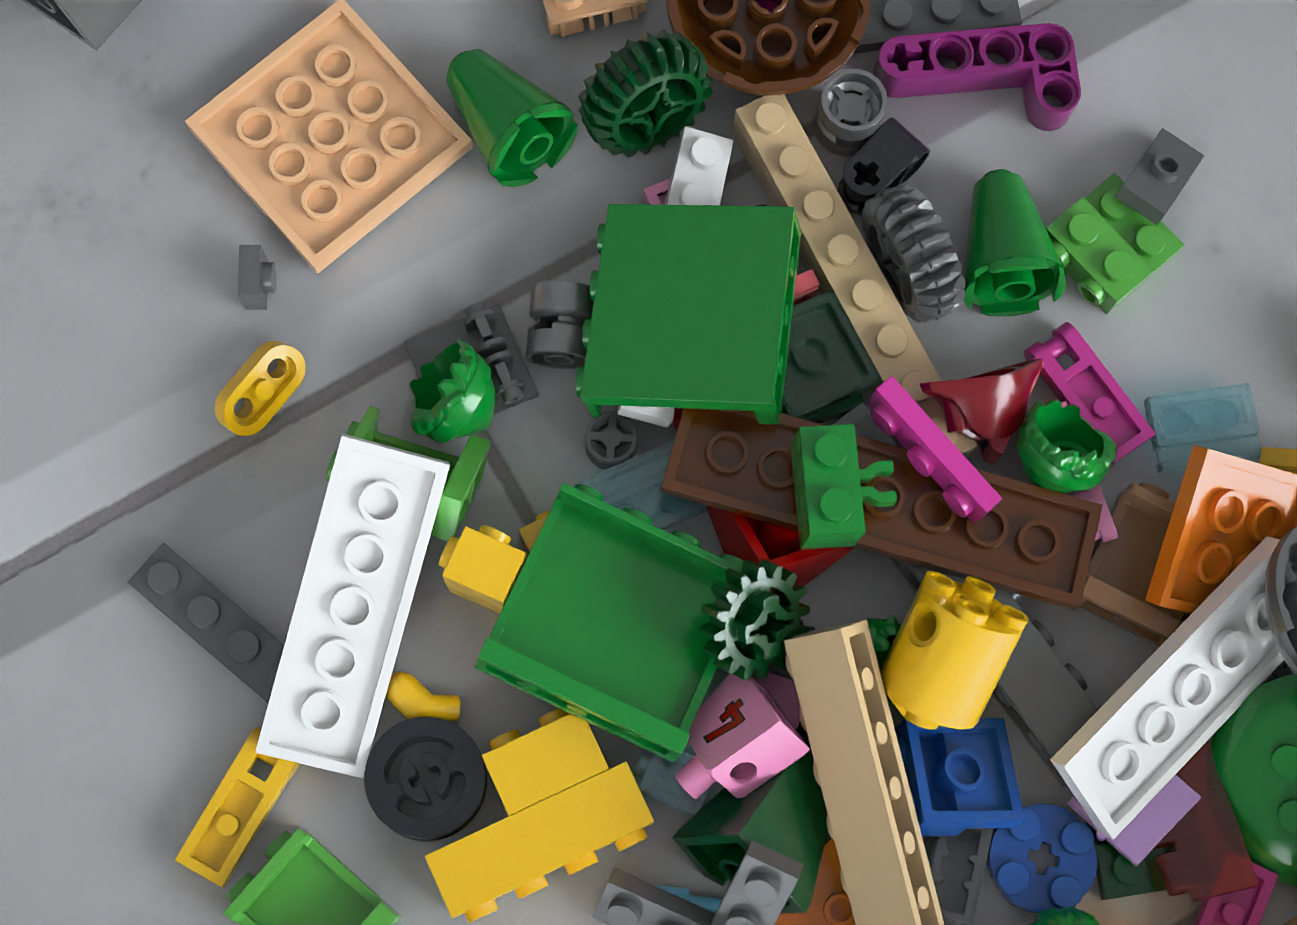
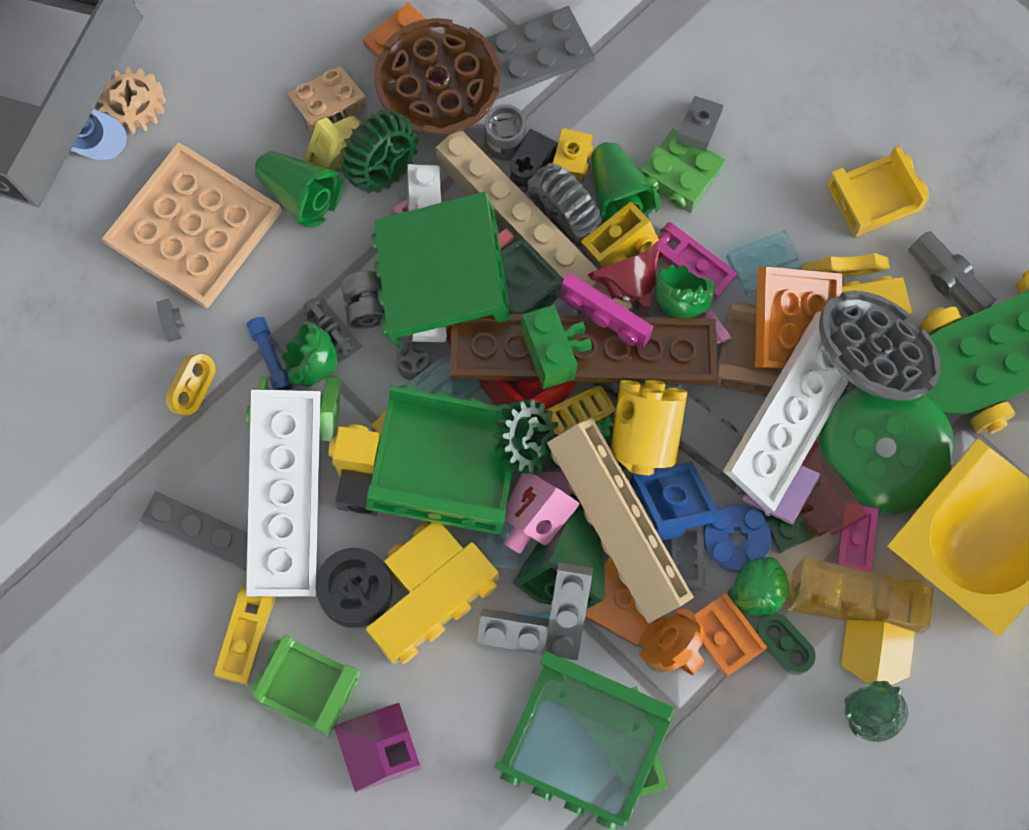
camera: 10 degrees left, 5 degrees down
(388, 331) = (260, 332): none -> blue bar
(416, 701) = (331, 542): yellow arm -> none
(465, 625) = (353, 492): none -> black brick
(572, 58) = (329, 140): none -> light yellow tile
(877, 587) = (594, 402): none -> yellow slope
(948, 175) = (574, 152): none -> yellow head
(986, 333) = (620, 237): none -> yellow brick
(1025, 68) = (535, 98): magenta beam -> none

